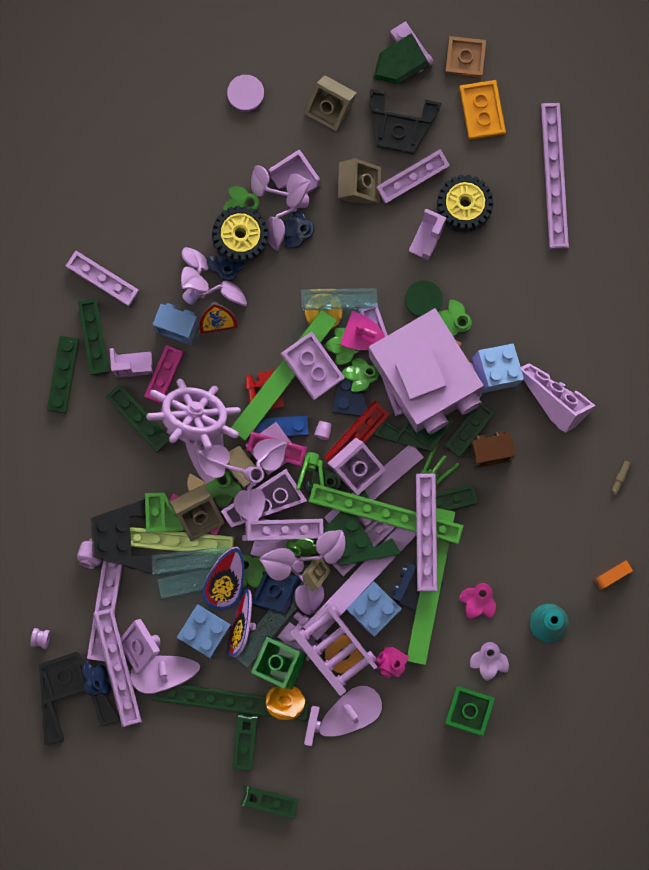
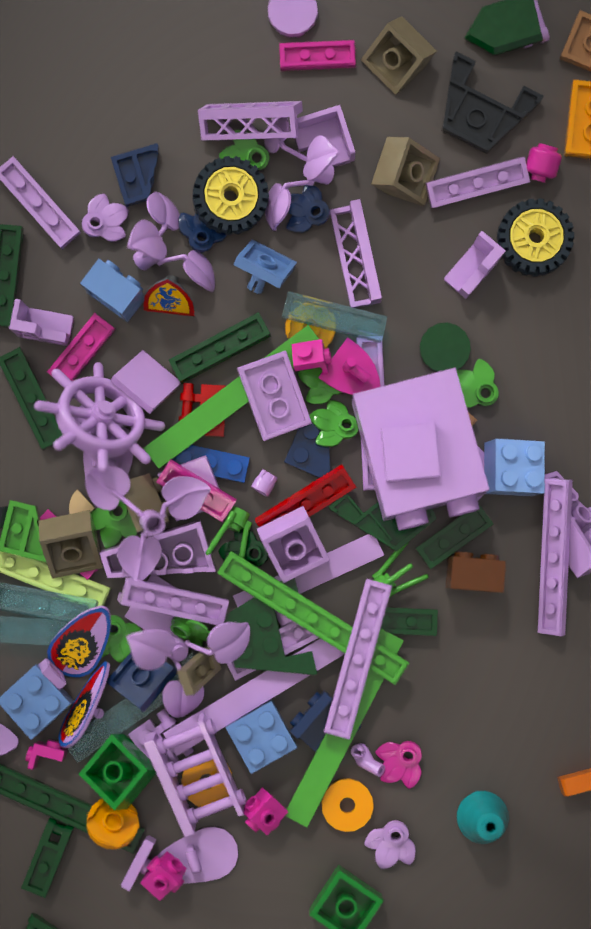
camera: 15 degrees right, 5 degrees up
(156, 274) = (108, 216): none -> lavender plate
(167, 238) = (136, 173): none -> dark blue wing
(211, 607) = (52, 673): none -> lavender tile
(217, 382) = (146, 381): none -> lavender tile
(225, 663) = (51, 750): none -> dark pink bracket
(235, 171) = (249, 110): none -> lavender fence
(263, 344) = (220, 348): none -> dark green plate
(272, 119) = (317, 55): none -> dark pink tile
(279, 277) = (264, 266): none -> medium blue tile
(330, 330) = (311, 355): none -> dark pink bracket
(333, 727) = (163, 875): none -> dark pink brick
(347, 247) = (365, 252): none -> lavender fence
(449, 630) = (344, 820): none -> light orange tile
(453, 606) = (365, 759): none -> lavender arm
(455, 149) = (543, 162): none -> dark pink head
(545, 422) = (555, 556): none -> lavender tile

